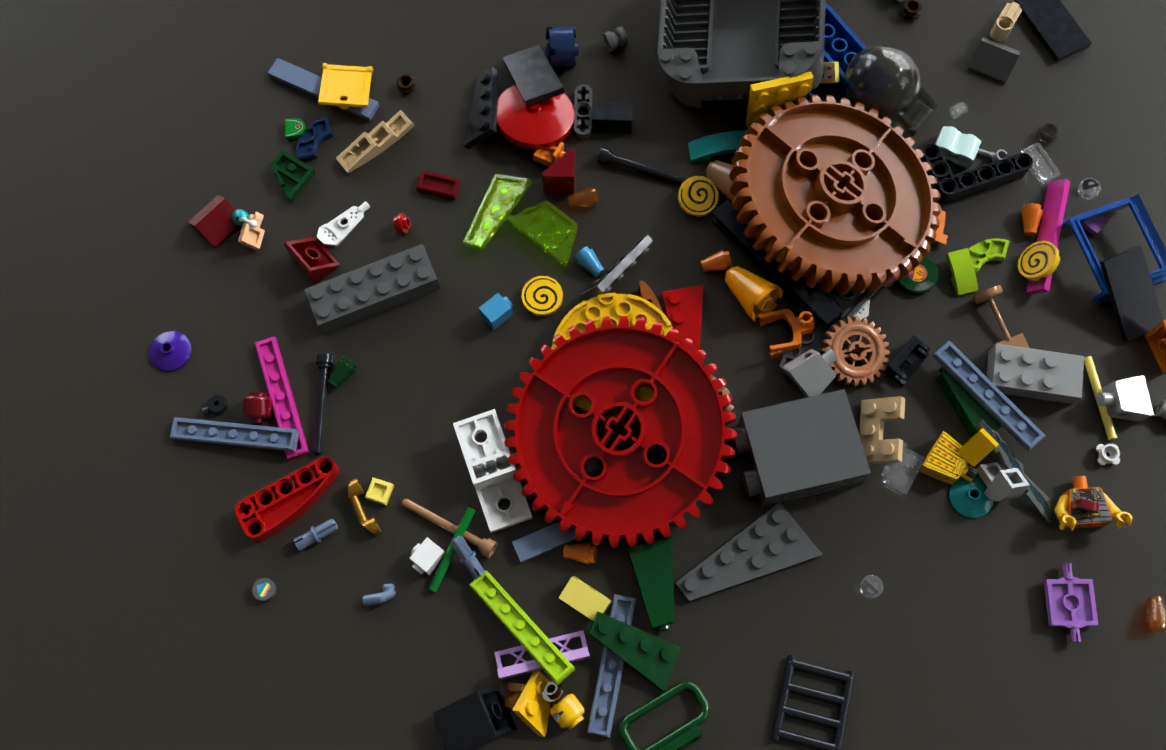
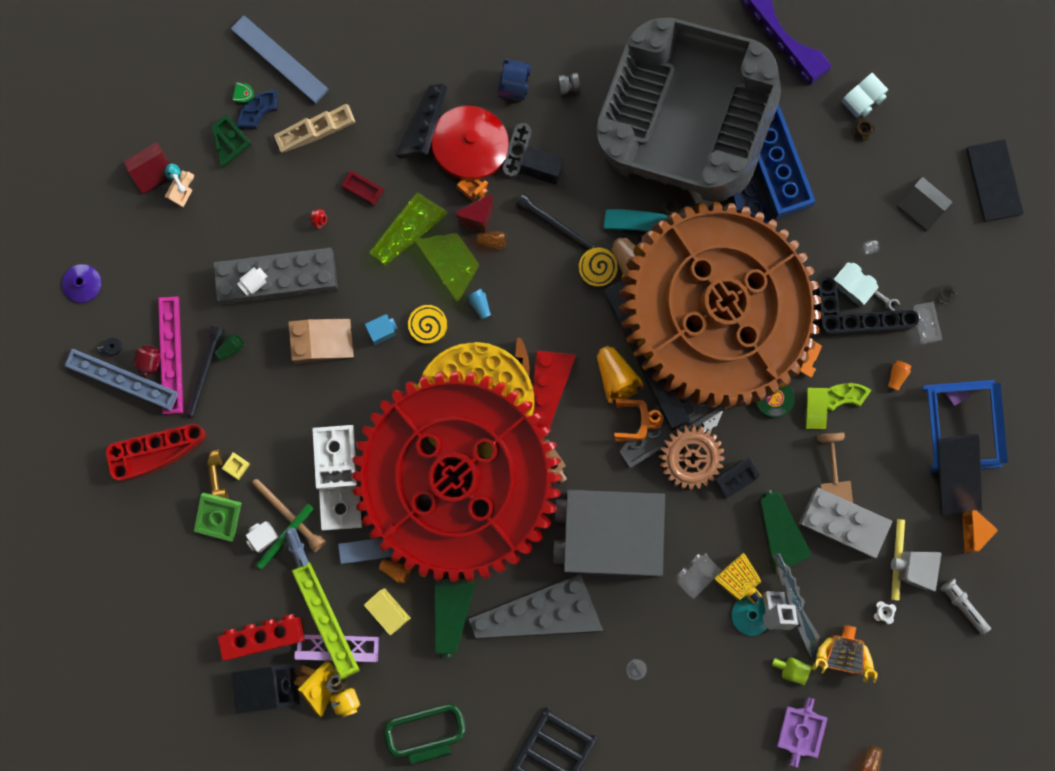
camera: 15 degrees right, 10 degrees up
(264, 589) = (116, 525): dark grey tile -> none
(312, 258) = (229, 230): dark red slope -> none
(315, 534) = (171, 489): sand blue axle -> none
(340, 231) = (261, 209): white piece -> none
(346, 82) = (302, 60): yellow container -> none
(350, 293) = (252, 281): none -> white brick
(373, 548) = (217, 517): none -> bright green tile
(379, 598) = (213, 561): sand blue arm -> none
(406, 79) = (354, 72): dark brown plate -> none
(420, 677) = (293, 634): none -> red brick
(436, 339) = (320, 340): none -> slope
(533, 75) = (478, 103): black tile -> none
(609, 674) = (394, 673): sand blue tile -> none
(615, 271) = (502, 318): dark grey wing -> none
(640, 650) = (420, 668): dark green wing -> none
(716, 262) = (595, 336): orange cone -> none
(774, 92) = (692, 195): yellow plate -> none
(812, 371) = (644, 467): light grey torso -> none
(831, 72) = (758, 180): light yellow tile -> none
(872, 420) = (677, 547): tan plate -> none
(889, 83) = (808, 206): clear smoke windscreen -> none
(978, 447) = (766, 577): yellow slope -> none
(988, 395) = (794, 532): sand blue tile -> none
(1005, 22) = (949, 168): tan piece -> none
(1037, 540) = (793, 670): none -> lime piece
(1038, 260) = (888, 418): yellow tile -> none
(1051, 226) = (908, 396): dark pink tile -> none
(1085, 506) = (841, 655): dark red tile -> none
(1089, 188) = (965, 359): clear tile -> none

